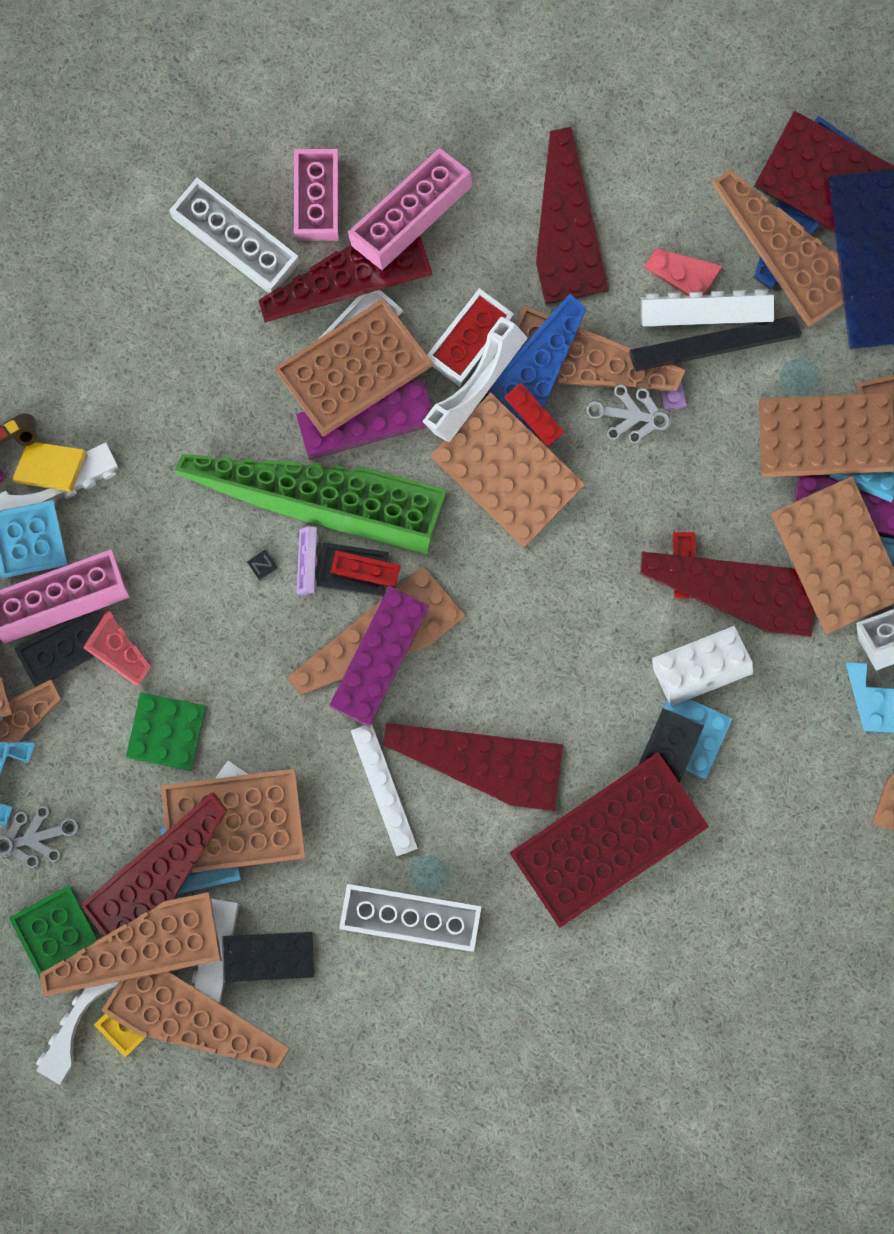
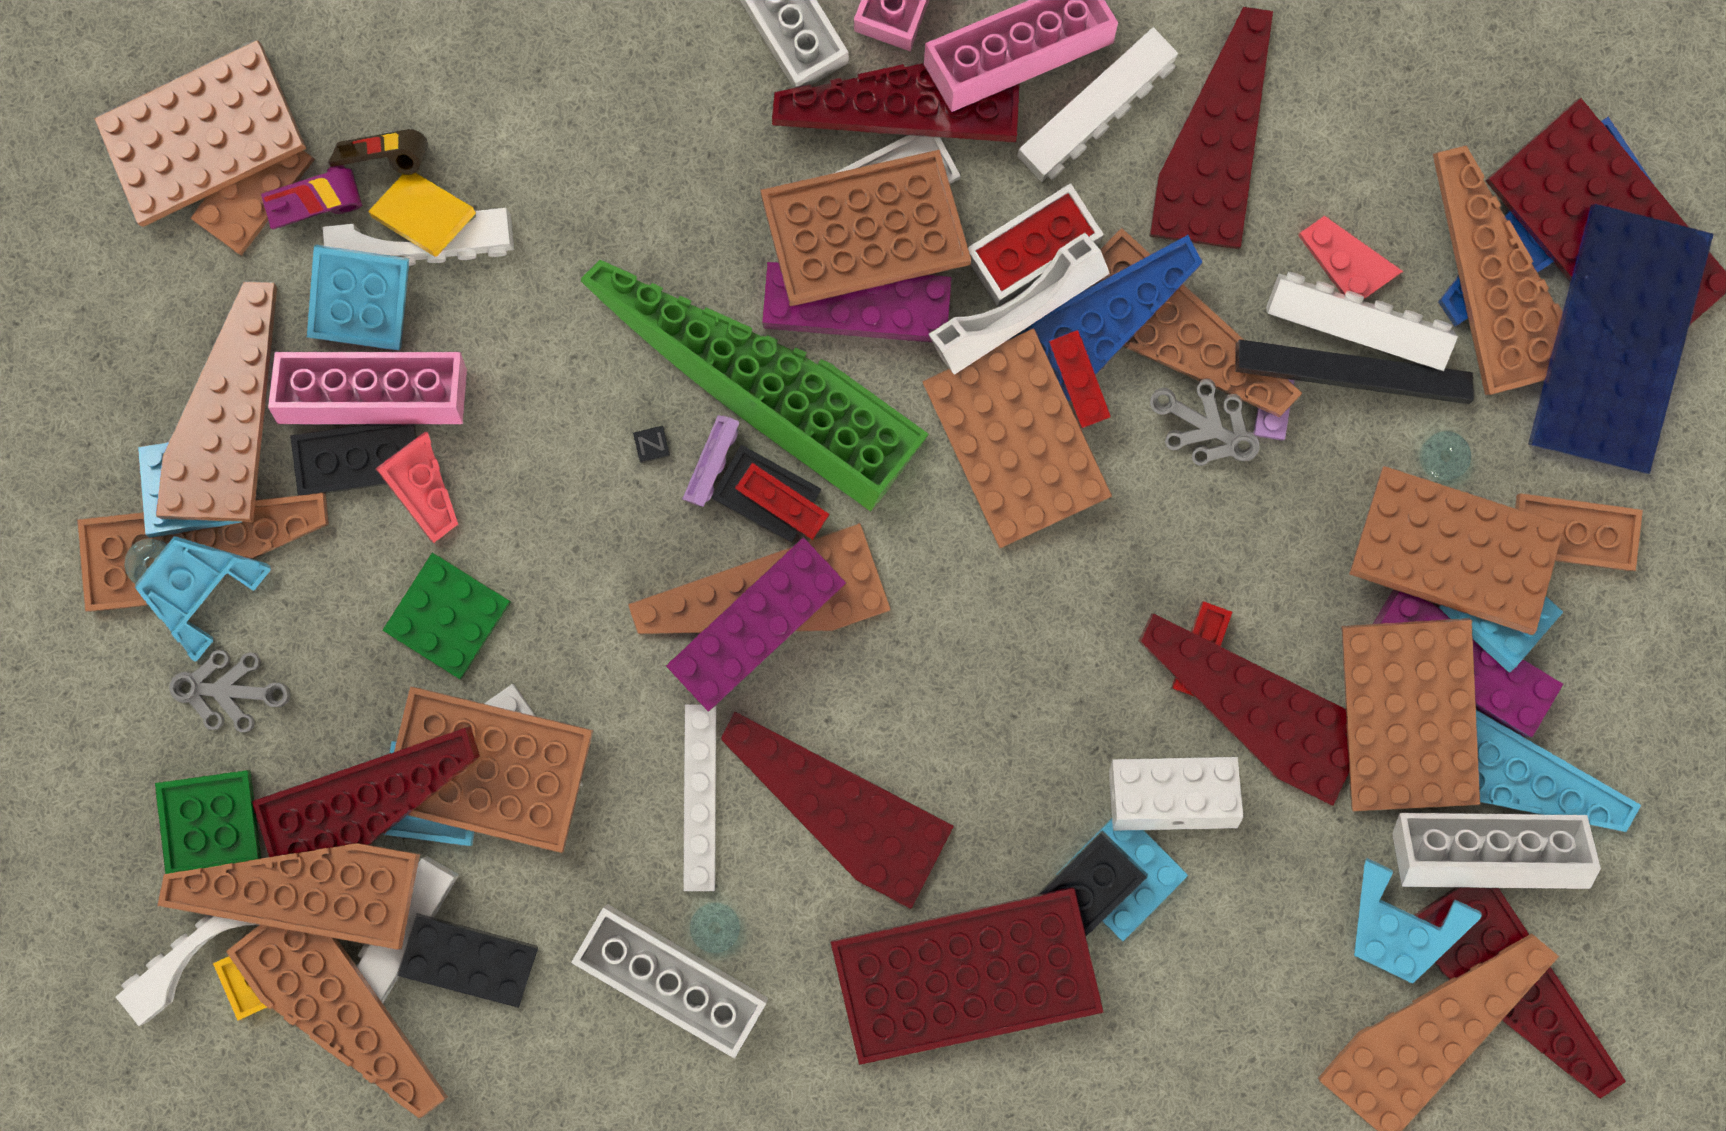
camera: 20 degrees right, 5 degrees up
(477, 231) = (1097, 105): none -> white brick

